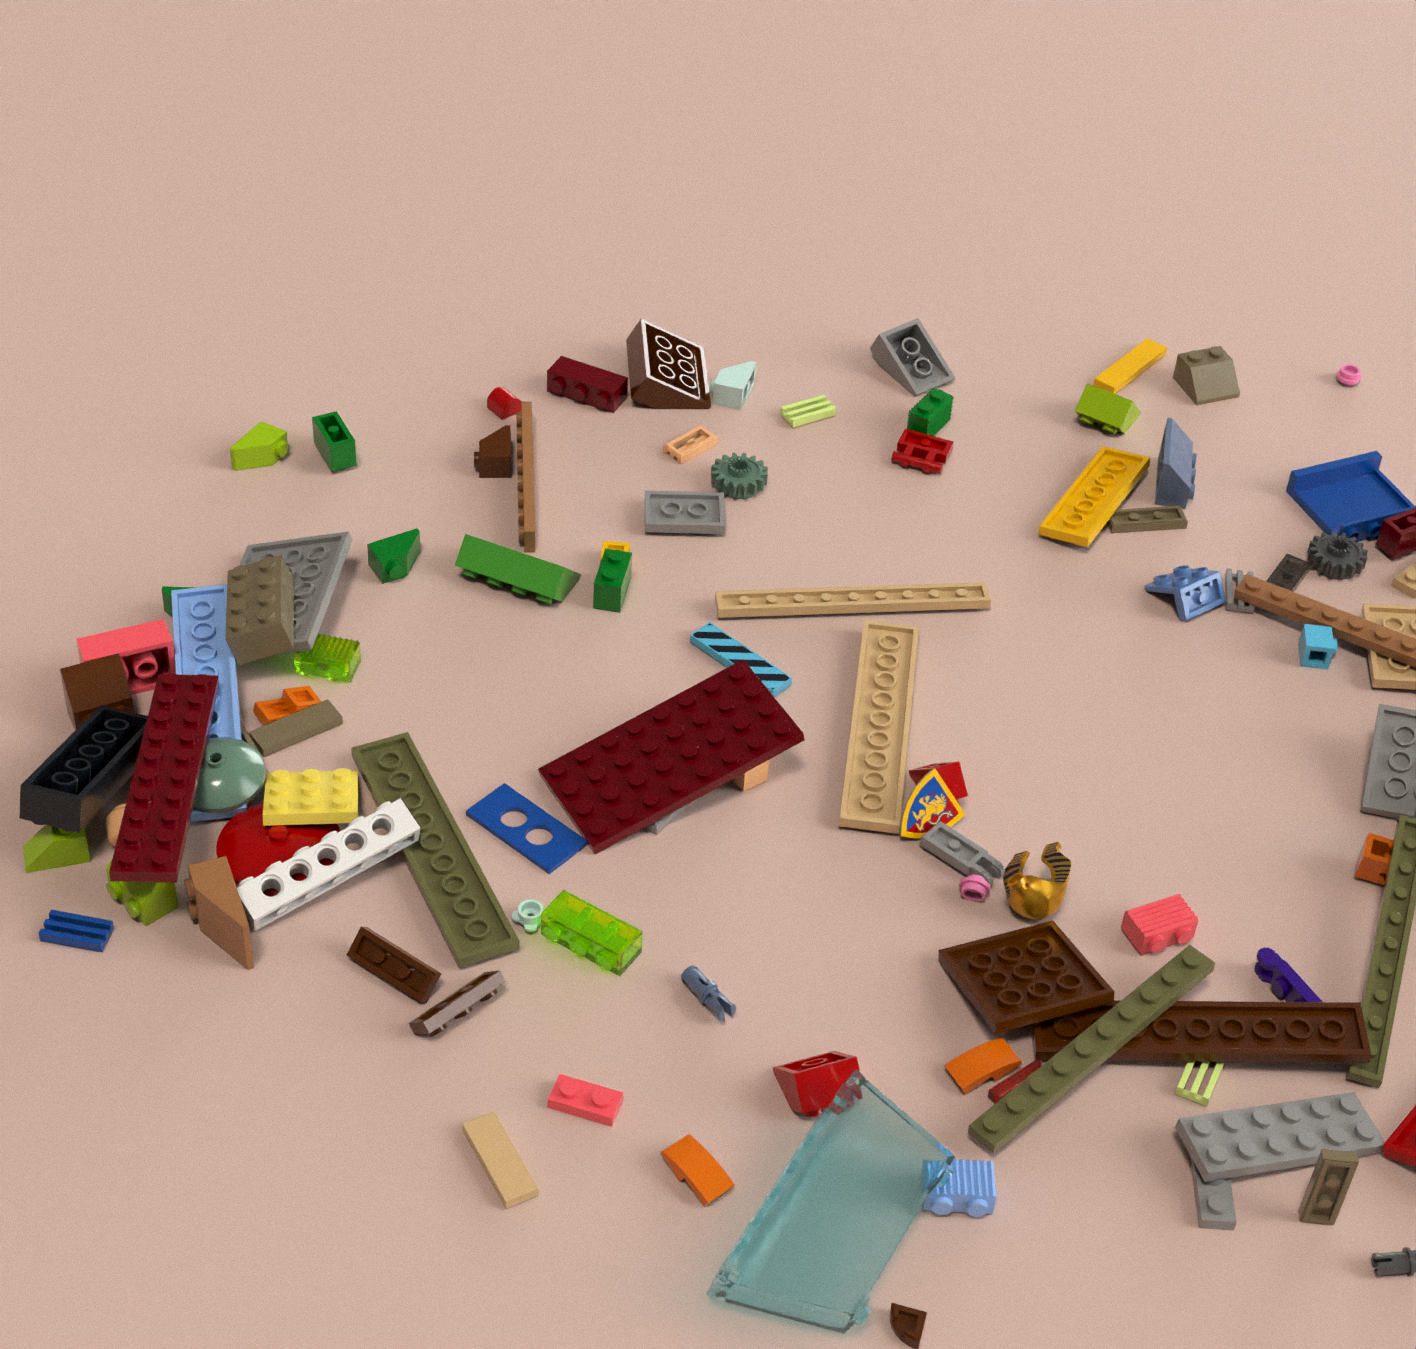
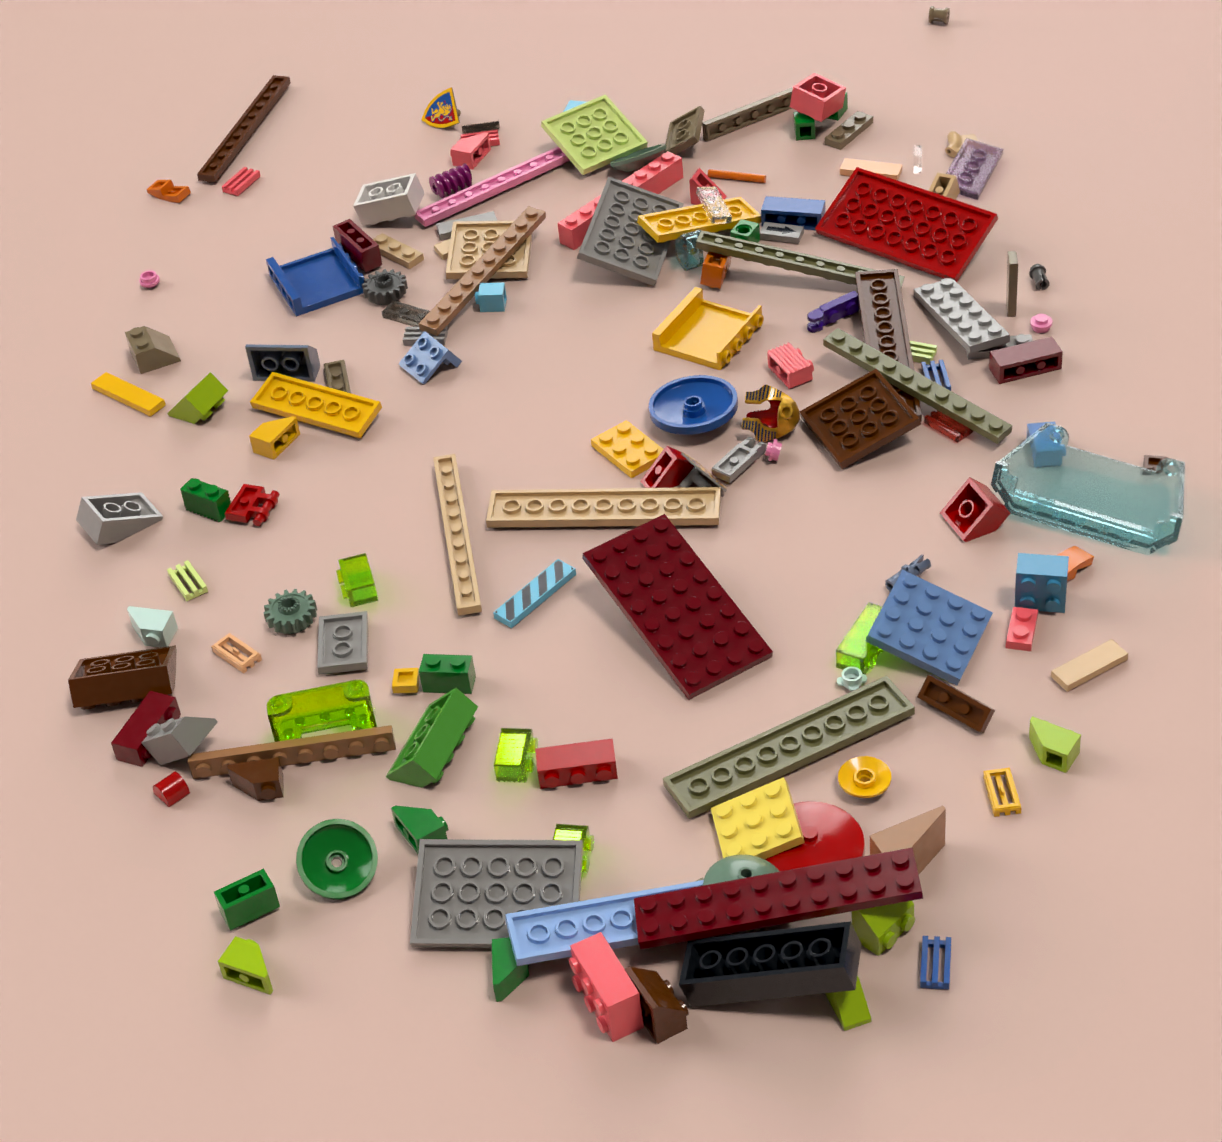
camera: 85 degrees left, 0 degrees up
(260, 610) = (539, 879): dark tan brick -> none
(291, 702) = (631, 872): orange slope -> none
(296, 727) = (657, 860): dark tan tile -> none
(307, 1035) = (1005, 807): none -> yellow tile
(320, 878) = (833, 785): white brick -> none
(359, 900) = (864, 777): none -> yellow dish
(359, 1086) = (1054, 744): none -> lime slope
(363, 494) = (341, 841): none -> green dish
(394, 964) = (926, 746): reddish brown plate -> none
(450, 670) = (576, 763): none -> brick
(479, 625) = (514, 754): none -> clear neon green brick
(548, 856) = (741, 724): blue piece -> none
(557, 393) = (177, 737): none -> light grey slope
(567, 485) = (321, 710): none -> clear neon green windscreen
(591, 991) = (929, 627): none -> medium blue plate
(641, 1113) = (1041, 582): none -> dark azure brick
(780, 522) = (357, 580): none -> clear neon green brick
(982, 1062) = (937, 440): orange slope -> none
(999, 756) = (627, 448): none -> yellow plate
(1036, 464) = (274, 437): none -> yellow slope
(1068, 808) = (693, 404): none -> blue dish
(1135, 1086) = (934, 367): none -> tile
(1166, 1200) = (1025, 360): none -> dark red brick
(1250, 848) = (705, 331): none -> yellow panel
(1271, 1244) = (1041, 323): none -> bright pink plate

